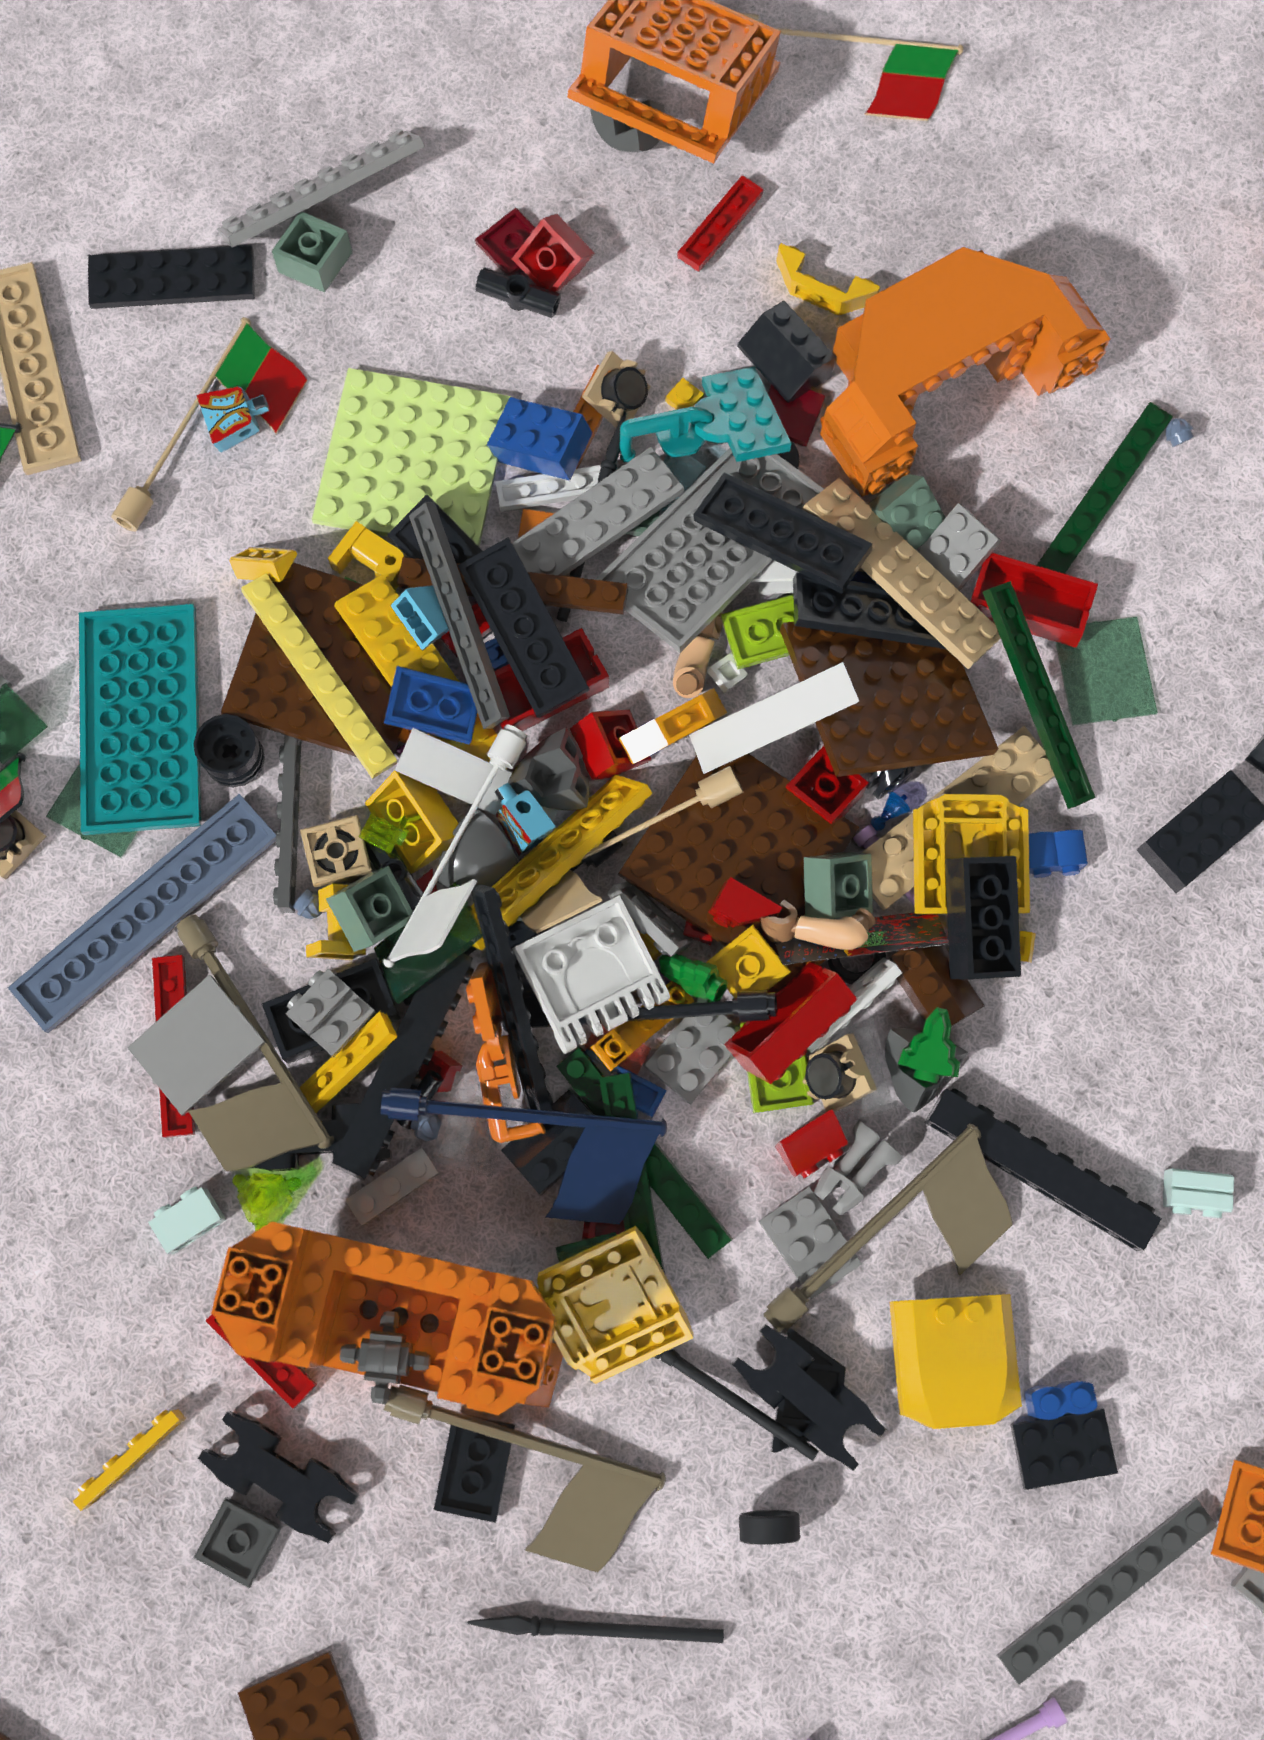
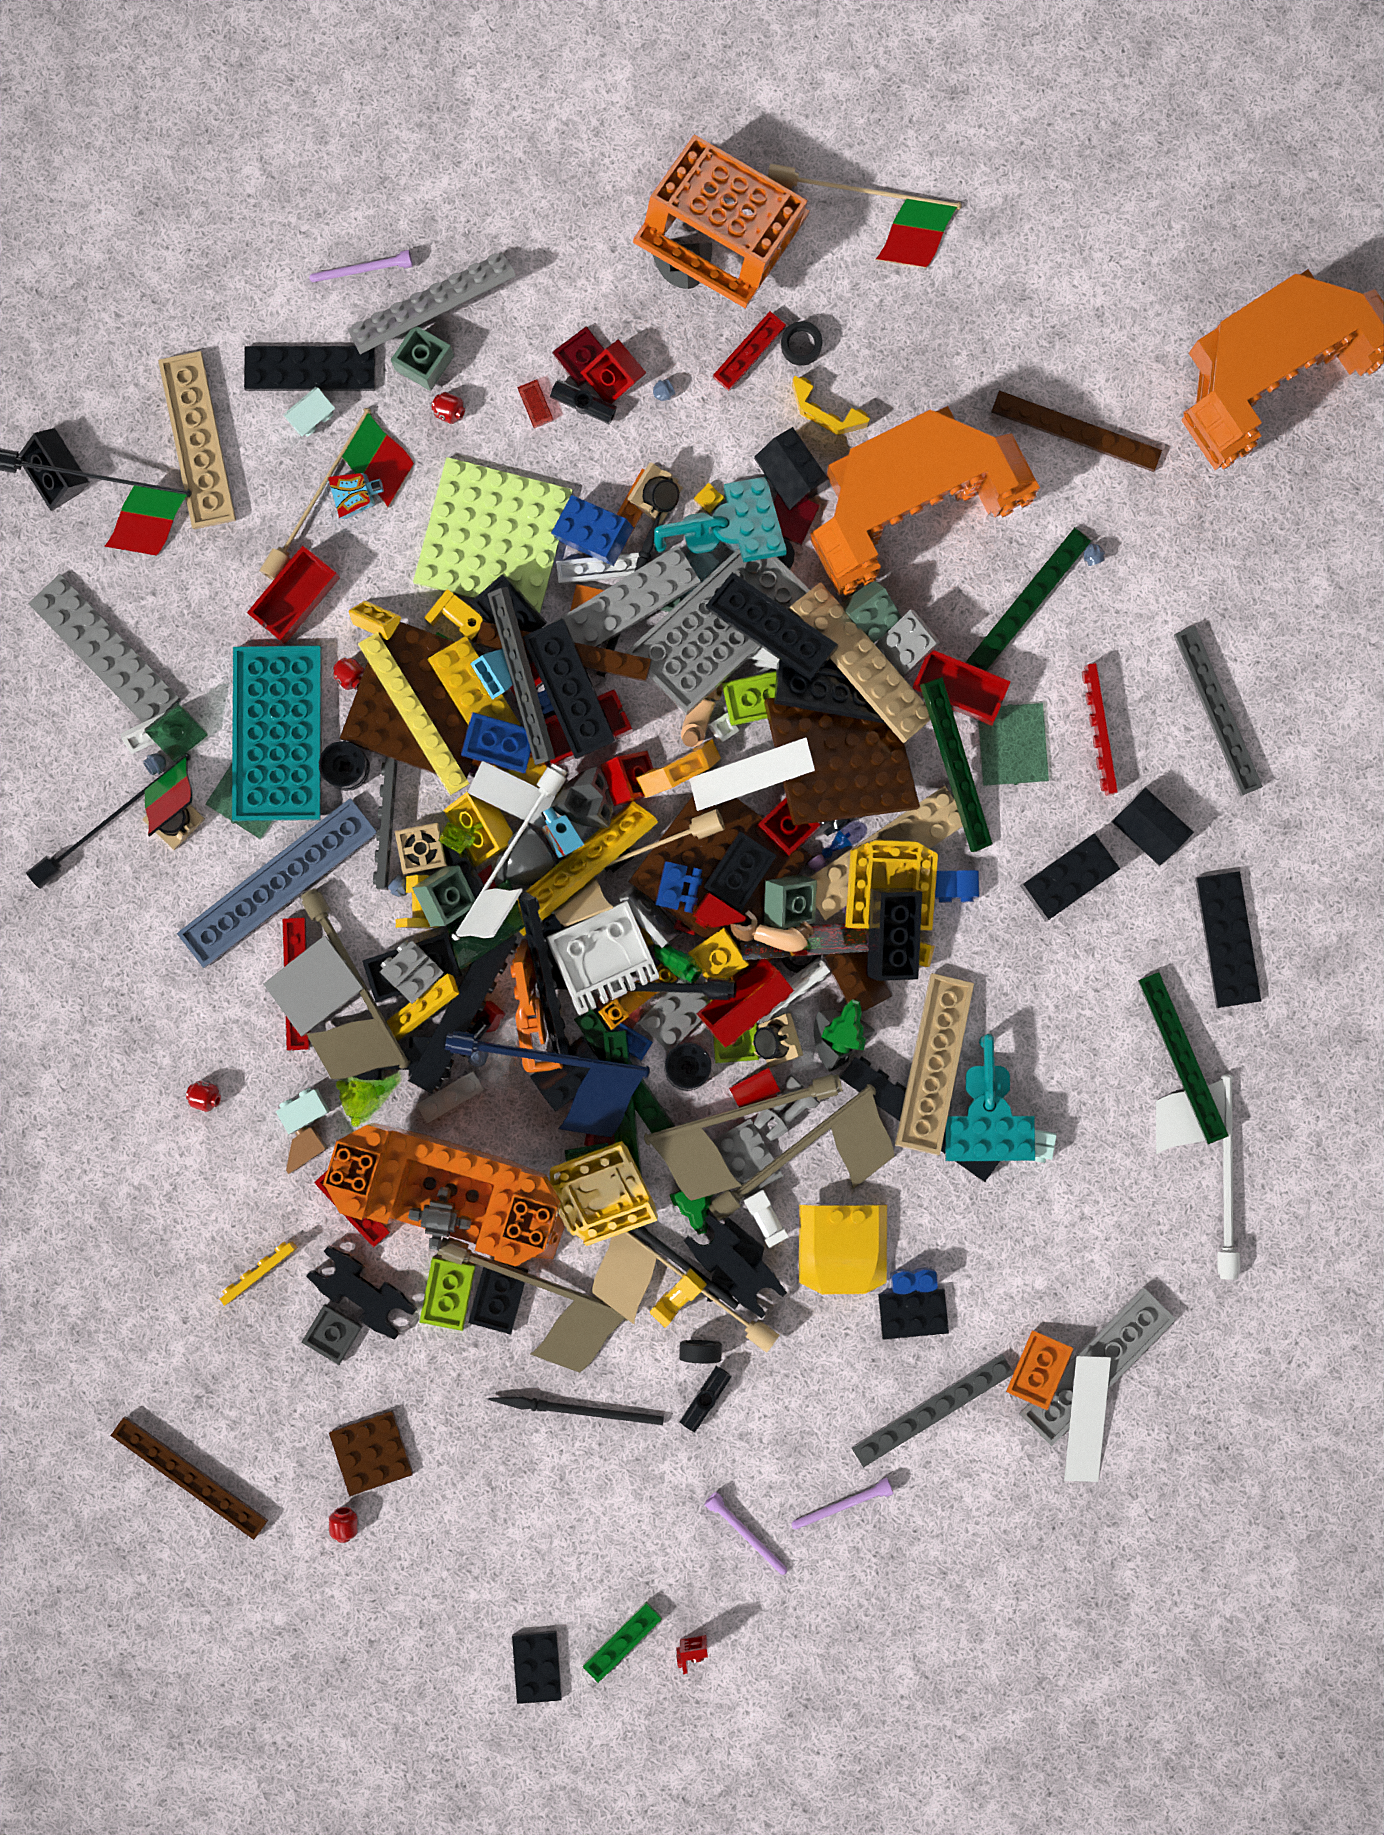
camera: 10 degrees right, 10 degrees up
(47, 1209) = (203, 1096): none -> red head
(156, 542) = (293, 595): none -> red piece
(171, 323) = (309, 412): none -> light aqua brick
(190, 1273) = (304, 1148): none -> medium nougat slope
(230, 635) = (348, 673): none -> red head
(282, 145) = (403, 260): none -> lavender piece
(347, 309) = (448, 407): none -> red head
(401, 1469) = (447, 1294): none -> lime tile
(457, 300) = (535, 403): none -> clear red tile
(617, 273) = (663, 390): none -> sand blue plate
(657, 1418) = (627, 1274): none -> tan flag
(678, 871) = (672, 884): none -> blue plate
(725, 1453) = (672, 1301): none -> yellow piece
(728, 1105) = (696, 1057): none -> black wheel
(739, 1244) = (695, 1157): none -> dark tan flag
(742, 1311) = (695, 1210): none -> green rock
(767, 848) = (739, 871): none -> black plate
(772, 1617) = (713, 1386): none -> black piece
(788, 192) = (805, 327): none -> black tyre
(835, 1312) = (761, 1209): none -> white piece
(1055, 1093) = (934, 1064): none -> tan plate
(1136, 1181) = (984, 1133): none -> teal plate
(1143, 292) = (1076, 431): none -> reddish brown plate
(1220, 652) = (1101, 738): none -> red plate

